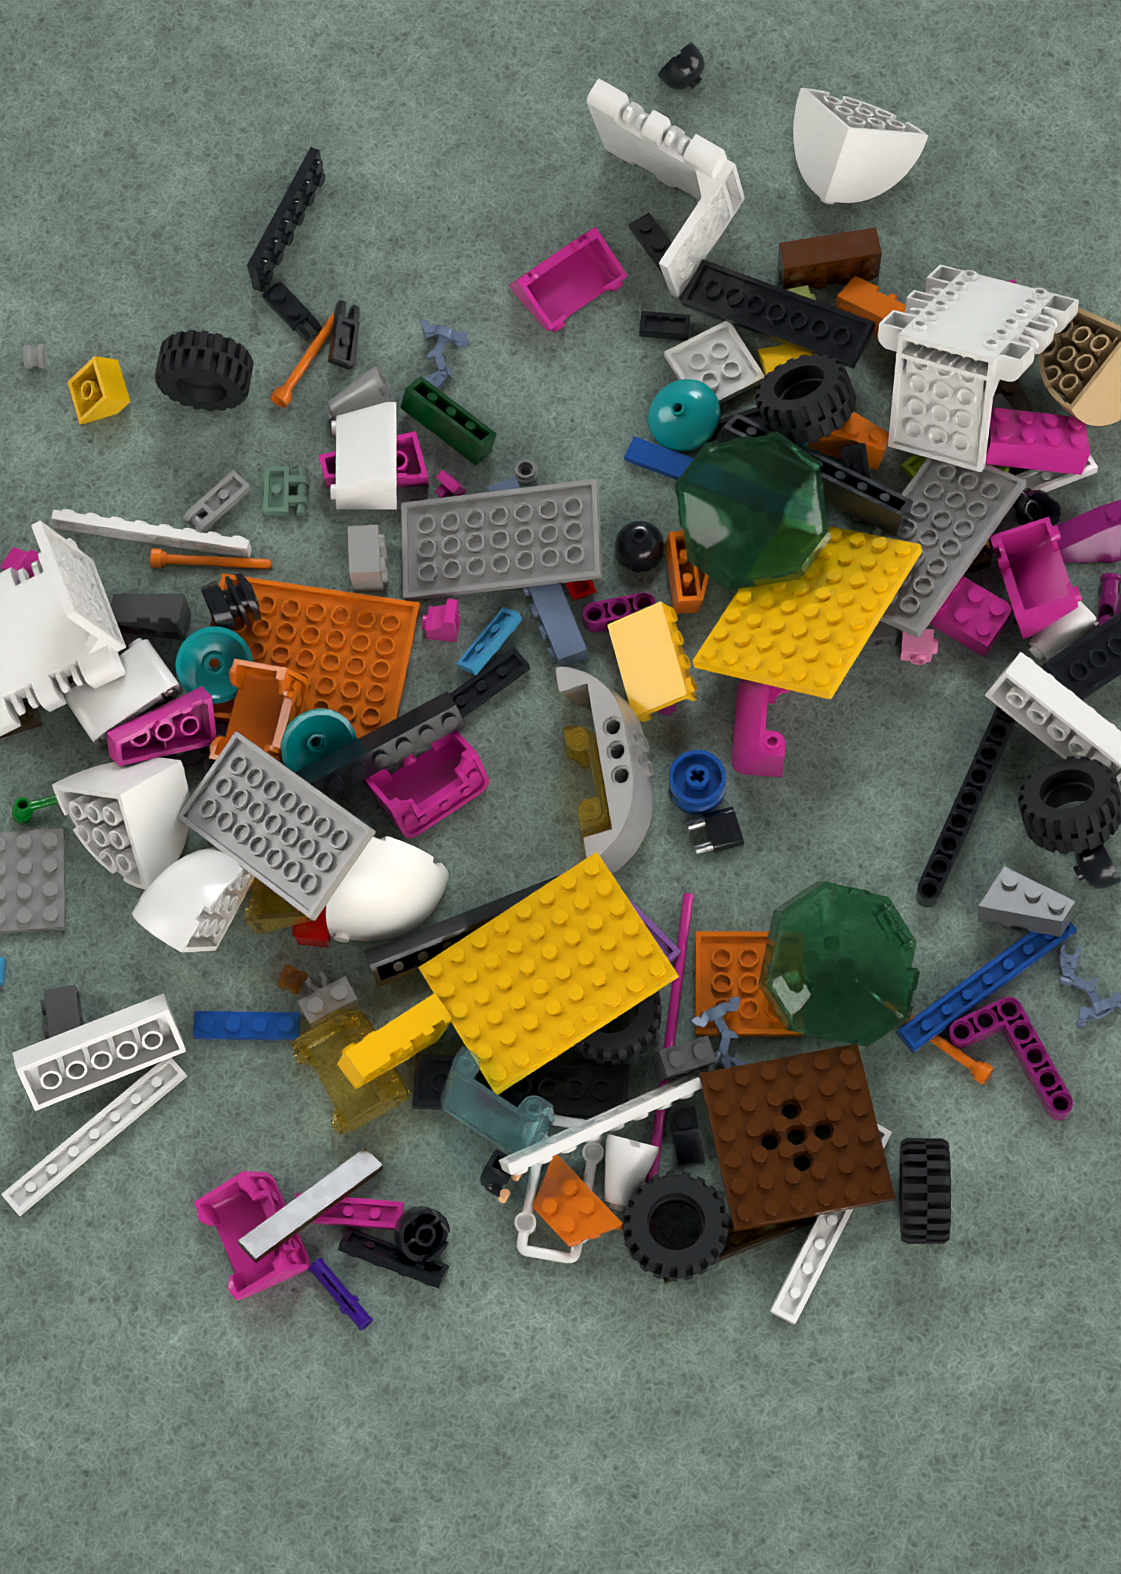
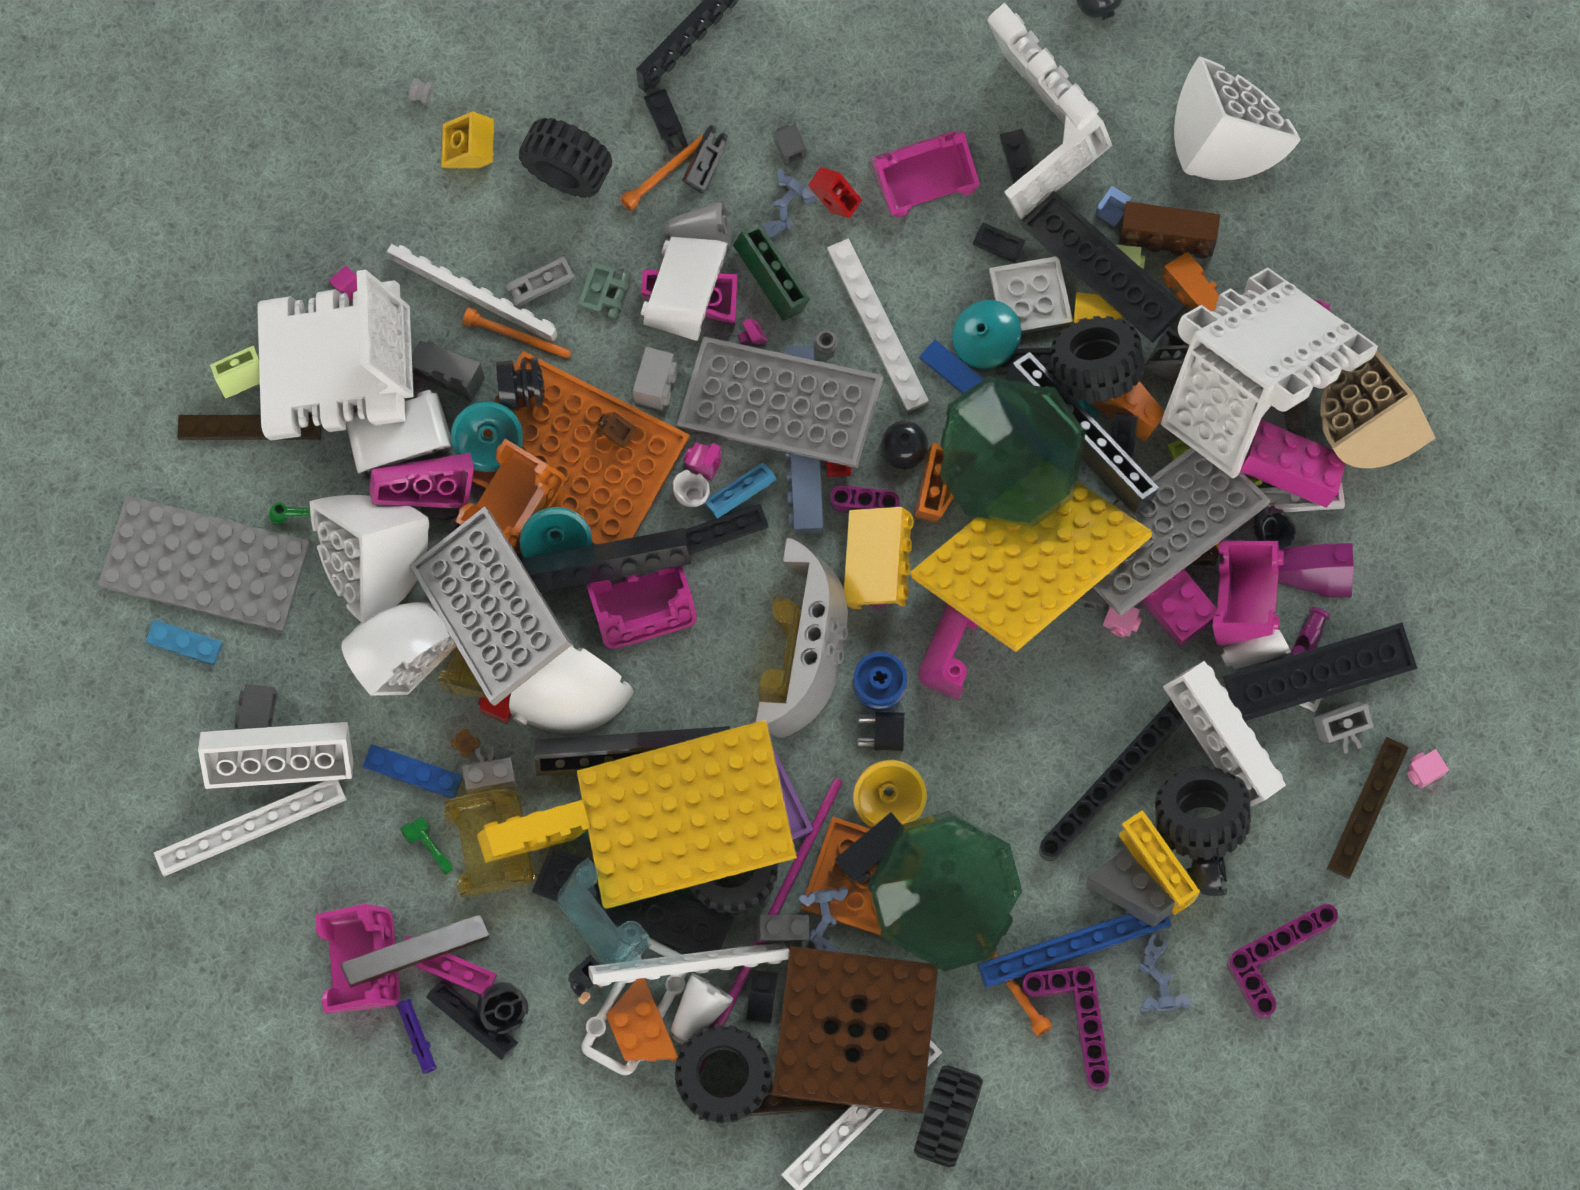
camera: 15 degrees right, 5 degrees up
(272, 1083) = (416, 831): none -> green brick
(342, 618) = (615, 428): none -> reddish brown bracket
(424, 295) = (789, 143): none -> dark grey brick
(439, 655) = (690, 489): none -> white hair
(486, 324) = (835, 192): none -> red brick
(572, 441) = (877, 325): none -> white plate
(746, 952) = (868, 850): none -> black brick
(763, 891) = (905, 800): none -> yellow dish
(764, 257) = (1112, 206): none -> light blue panel
(875, 377) = (1168, 355): none -> dark grey wedge
(1042, 863) = (1158, 860): none -> yellow panel

